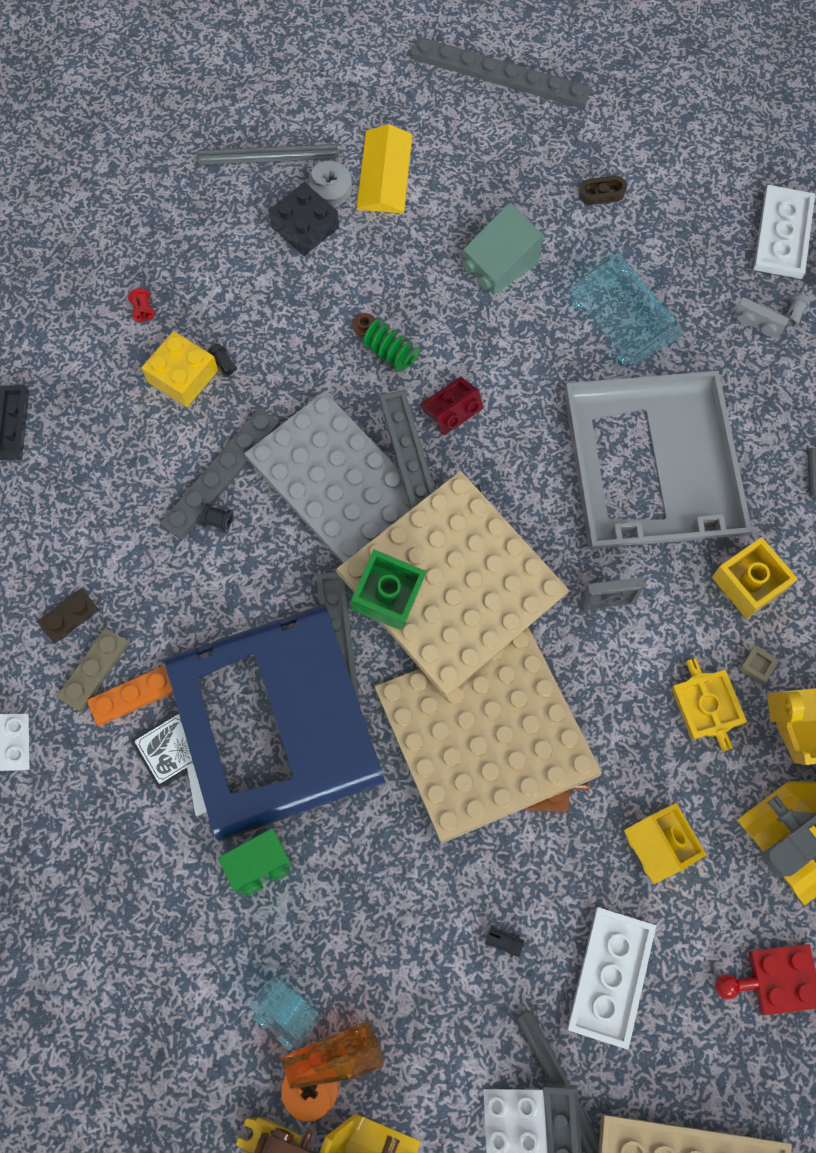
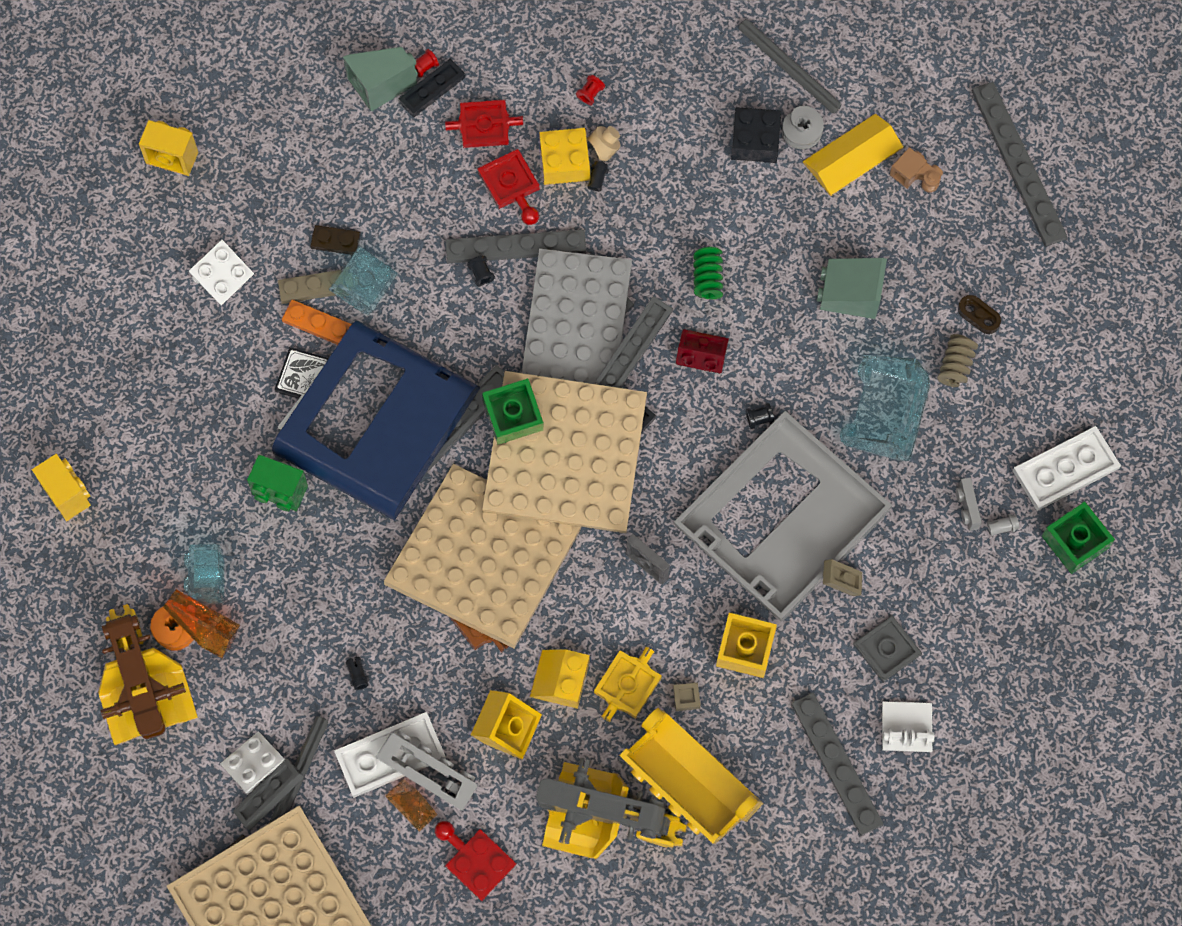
camera: 50 degrees right, 0 degrees up
(66, 1087) = (62, 486): none -> yellow brick
(86, 408) = (484, 123): none -> red plate
(132, 622) = (363, 281): none -> clear light blue brick
(159, 428) = (510, 181): none -> red plate
(199, 328) = (605, 142): none -> tan piece
(356, 324) = (711, 236): reddish brown plate -> none
(439, 136) = (913, 167): none -> medium nougat brick
(550, 407) = (759, 416): none -> black bush
(620, 968) = (462, 791): none -> light grey brick
(630, 232) = (957, 360): none -> dark tan piece
(658, 757) = (560, 677): none -> yellow slope
(674, 997) = (411, 805): none -> clear orange slope
(752, 457) = (842, 577): none -> dark tan plate

